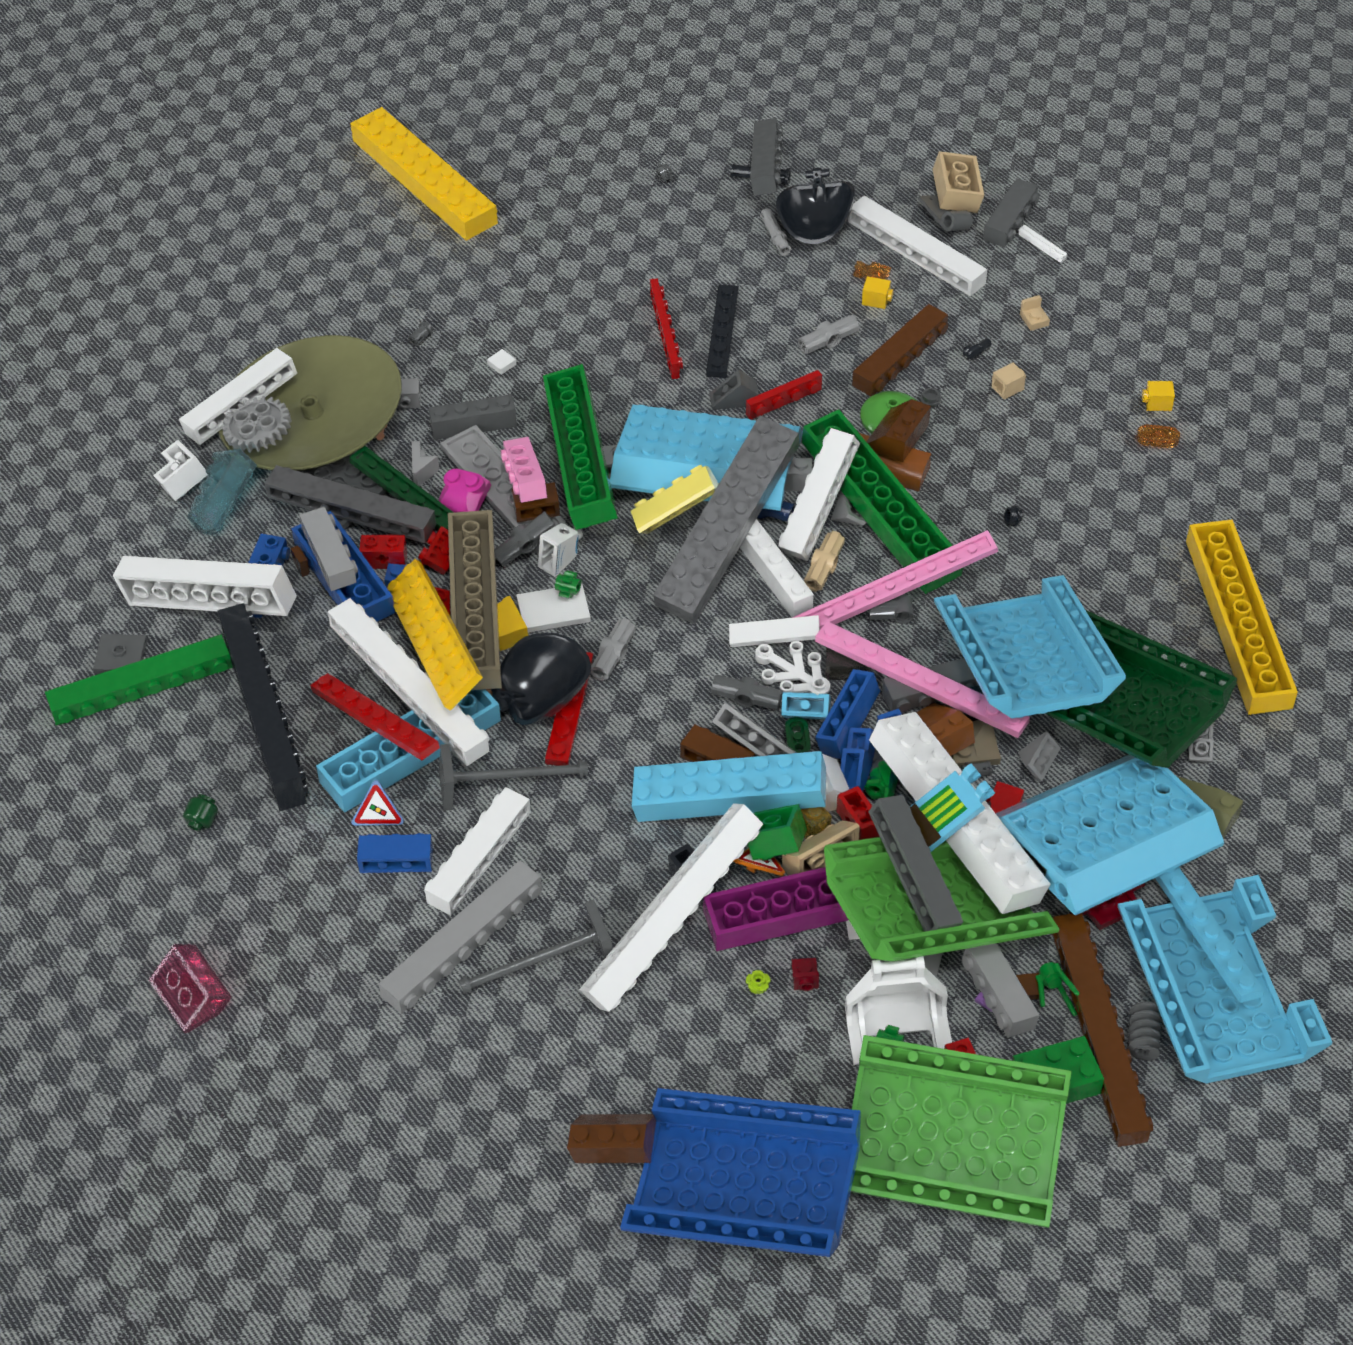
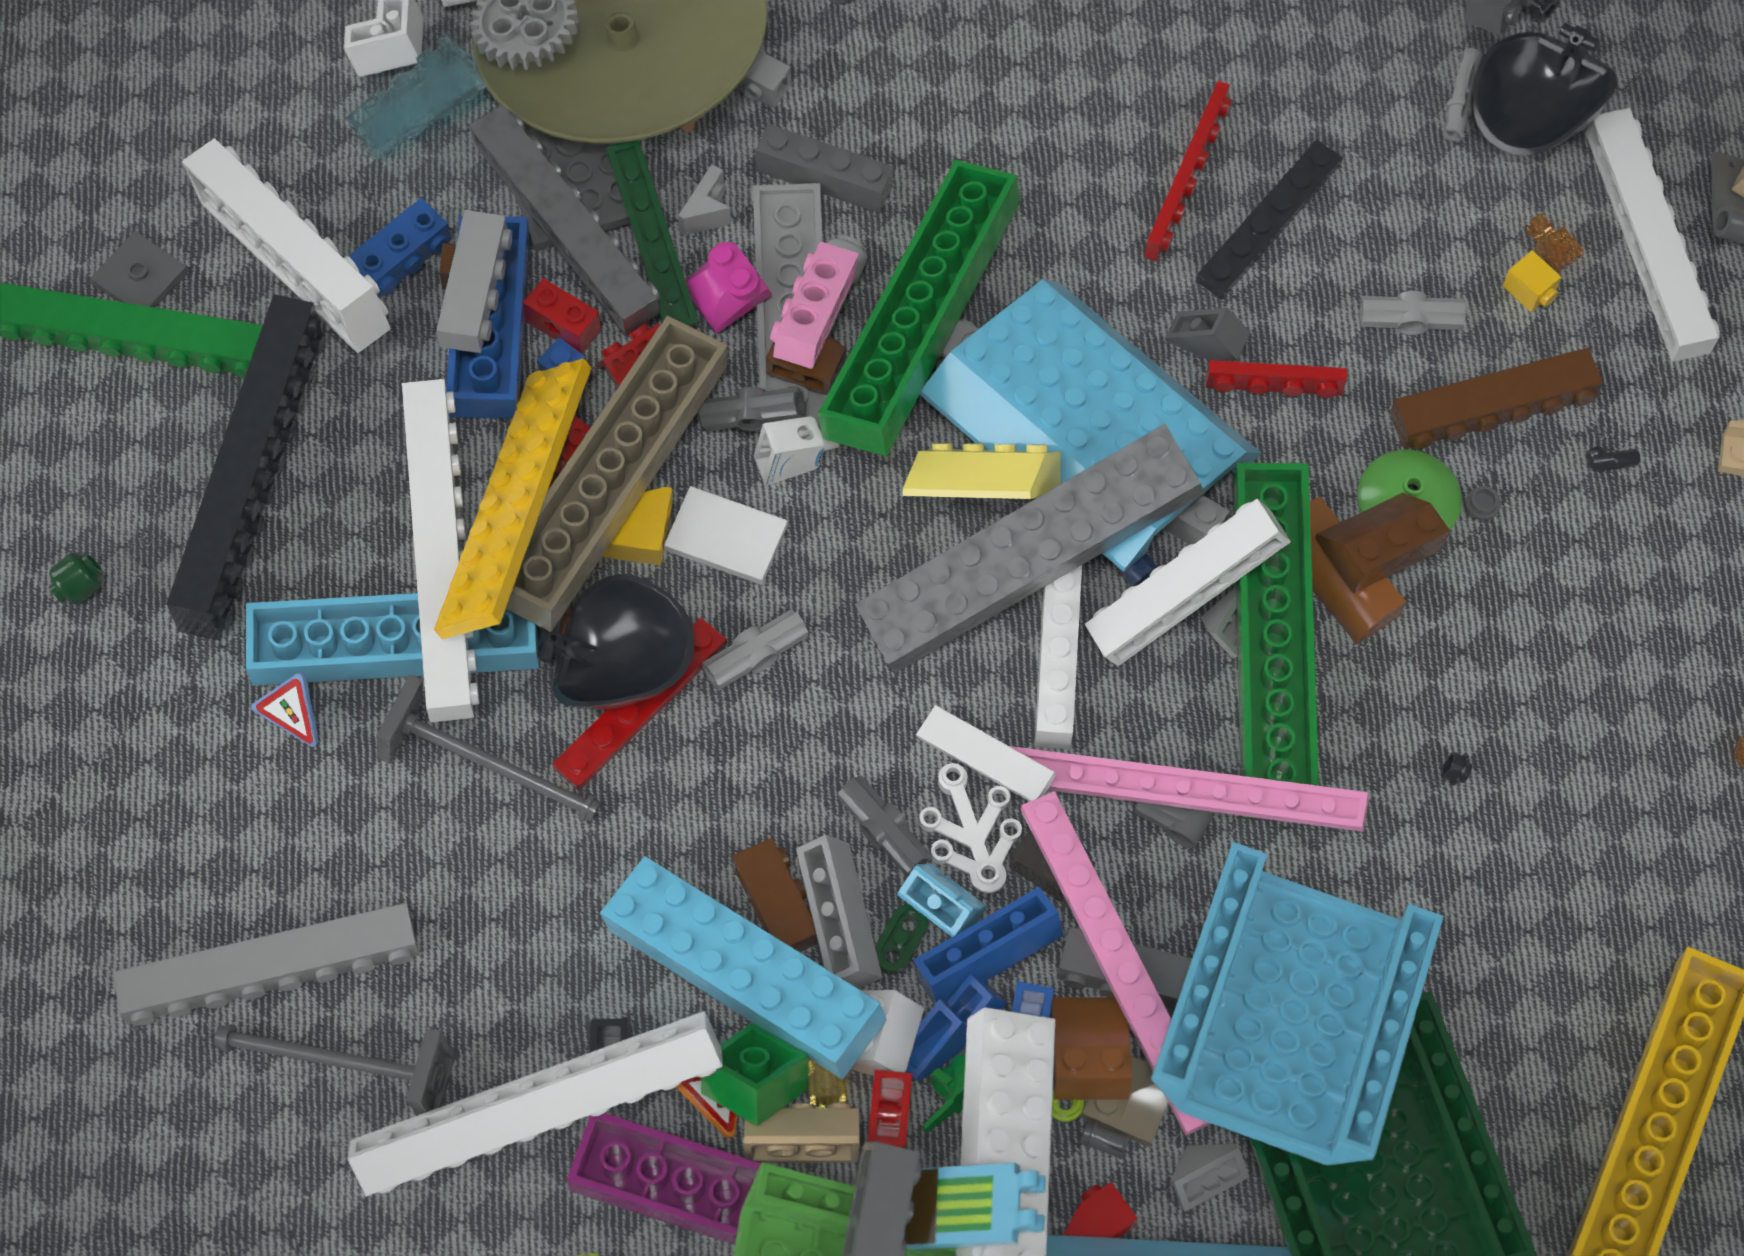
camera: 30 degrees right, 15 degrees up
(375, 716) = (367, 575): red plate -> none
(395, 853) = (269, 787): blue brick -> none
(477, 851) = (372, 849): white brick -> none
(501, 361) = (929, 97): white tile -> none
(568, 584) = (759, 516): green gear -> none
(824, 561) = (1136, 682): tan piece -> none
(1008, 380) = (1613, 543): tan brick -> none

